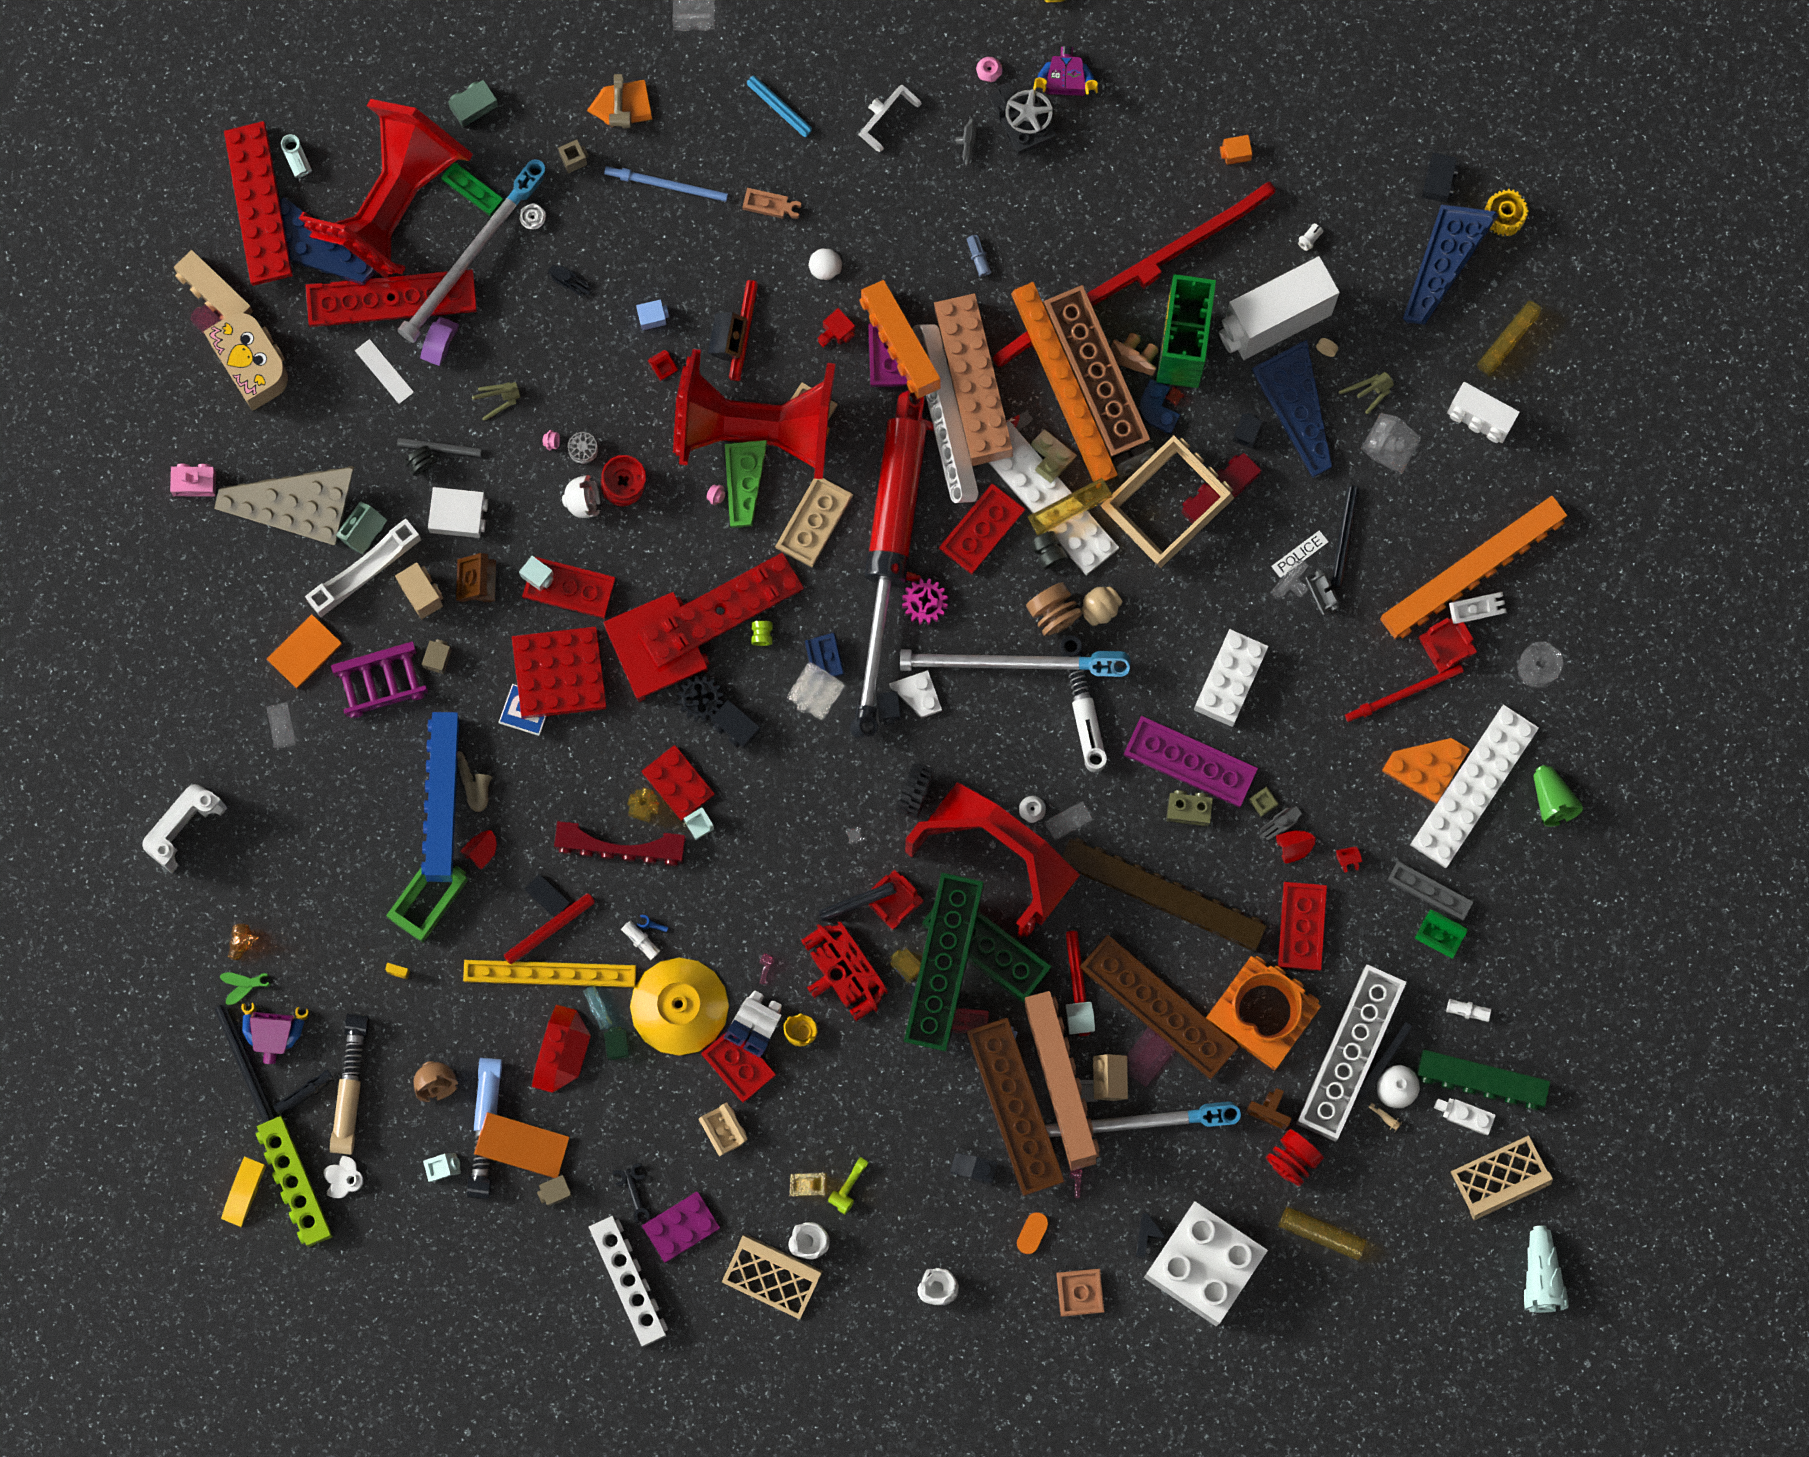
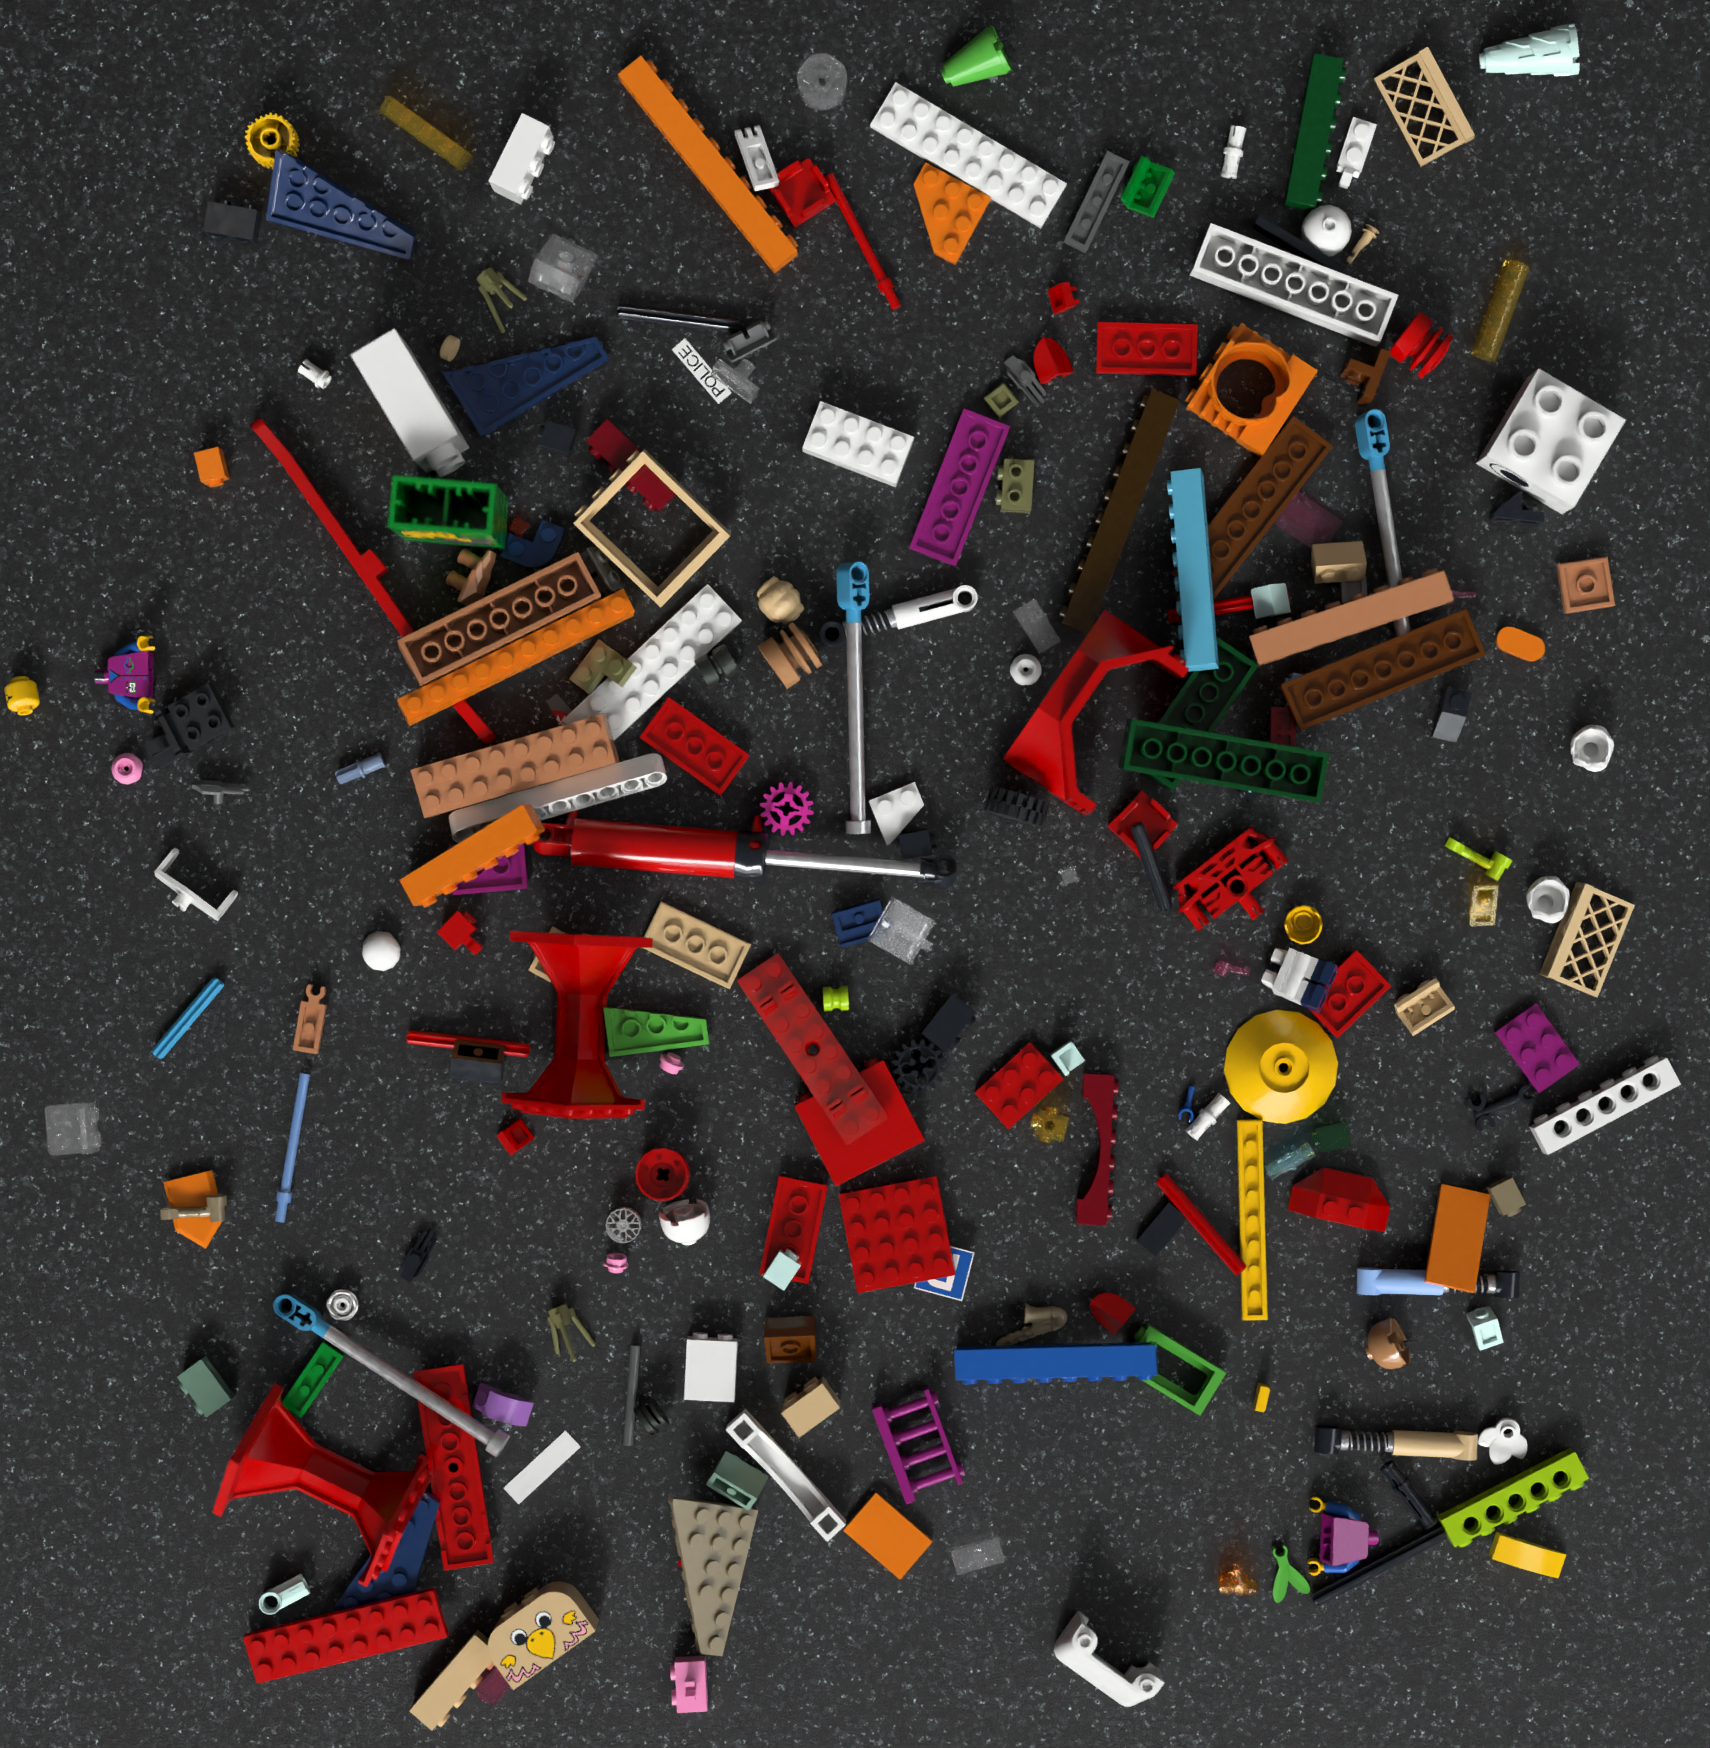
camera: 90 degrees left, 10 degrees up
(437, 656) = (885, 1379): dark tan brick -> none
(573, 156) = (265, 1261): dark tan brick -> none
(652, 314) = (456, 1153): light blue brick -> none
(905, 964) = (1219, 806): clear yellow brick -> none
(1029, 111) = (180, 716): light grey wheel -> none
(1070, 506) = (665, 642): clear yellow brick -> none
(1109, 951) = (1194, 569): none -> medium azure brick

